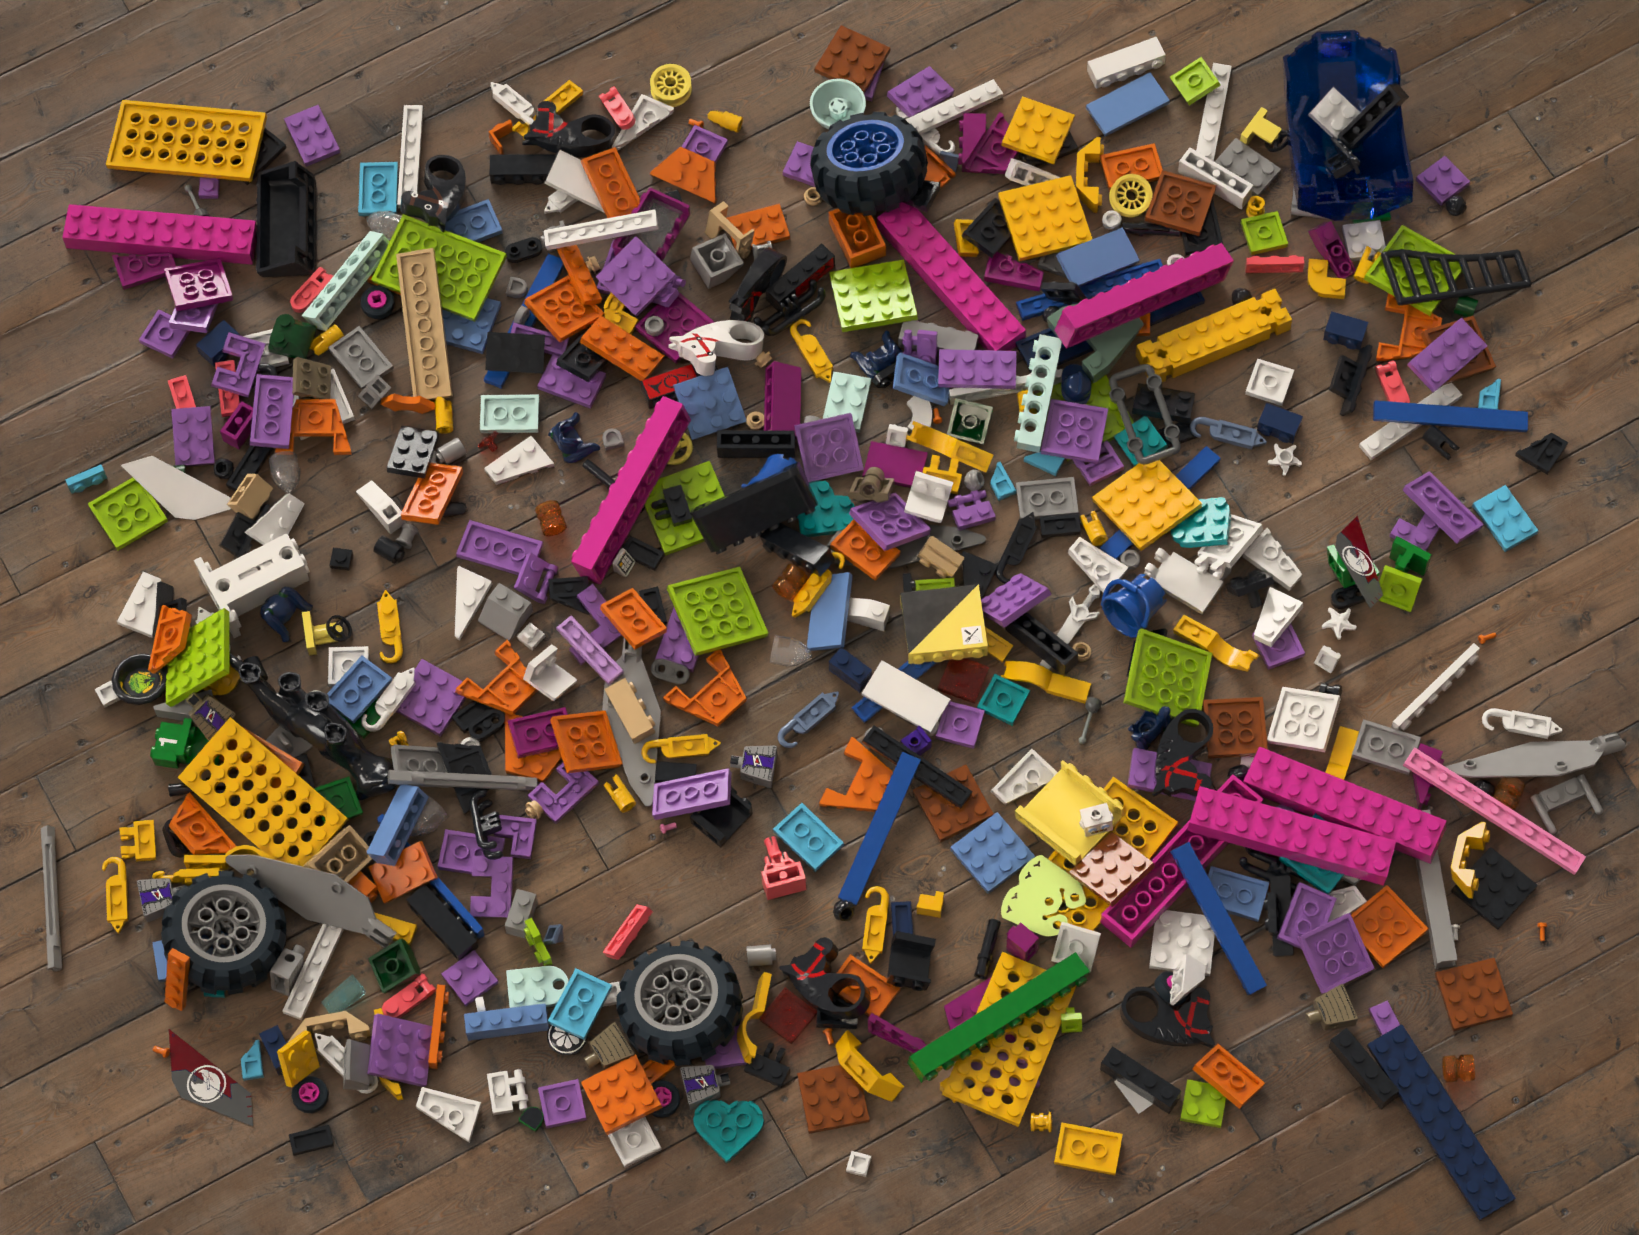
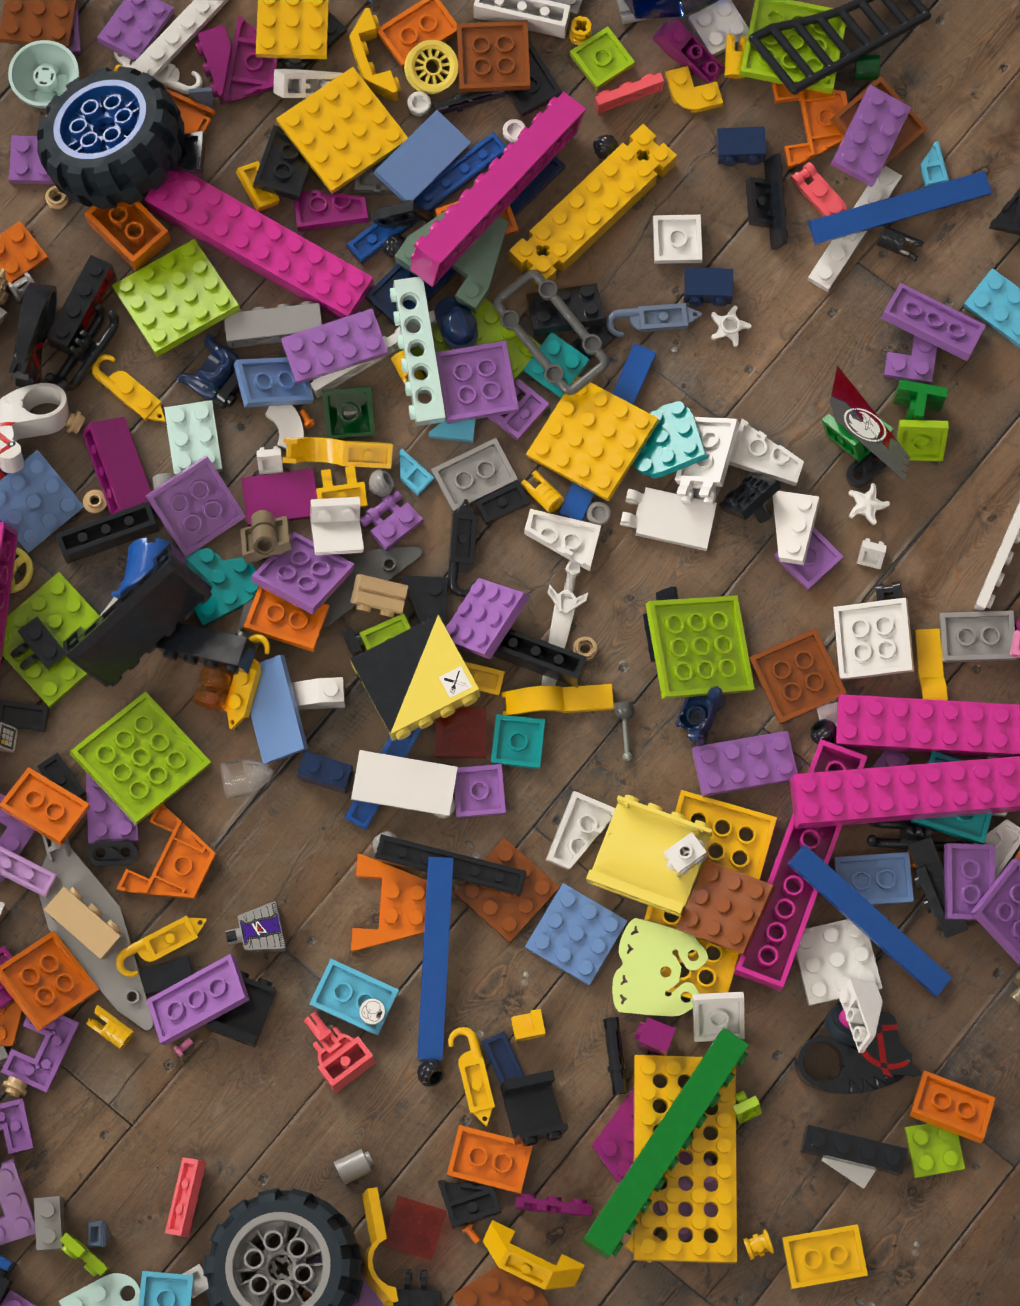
camera: 25 degrees left, 10 degrees up
(809, 717) = (298, 848): sand blue plate -> none
(817, 850) = (372, 1011): none -> white tile
(819, 986) = (427, 1176): black animal -> none
(923, 741) = (440, 825): dark purple brick -> none
(926, 345) = (263, 338): medium lavender plate -> none
(1133, 604) = (627, 572): blue piece -> none
(1172, 764) = (743, 744): black animal -> none
(1212, 642) = (734, 583): yellow piece -> none

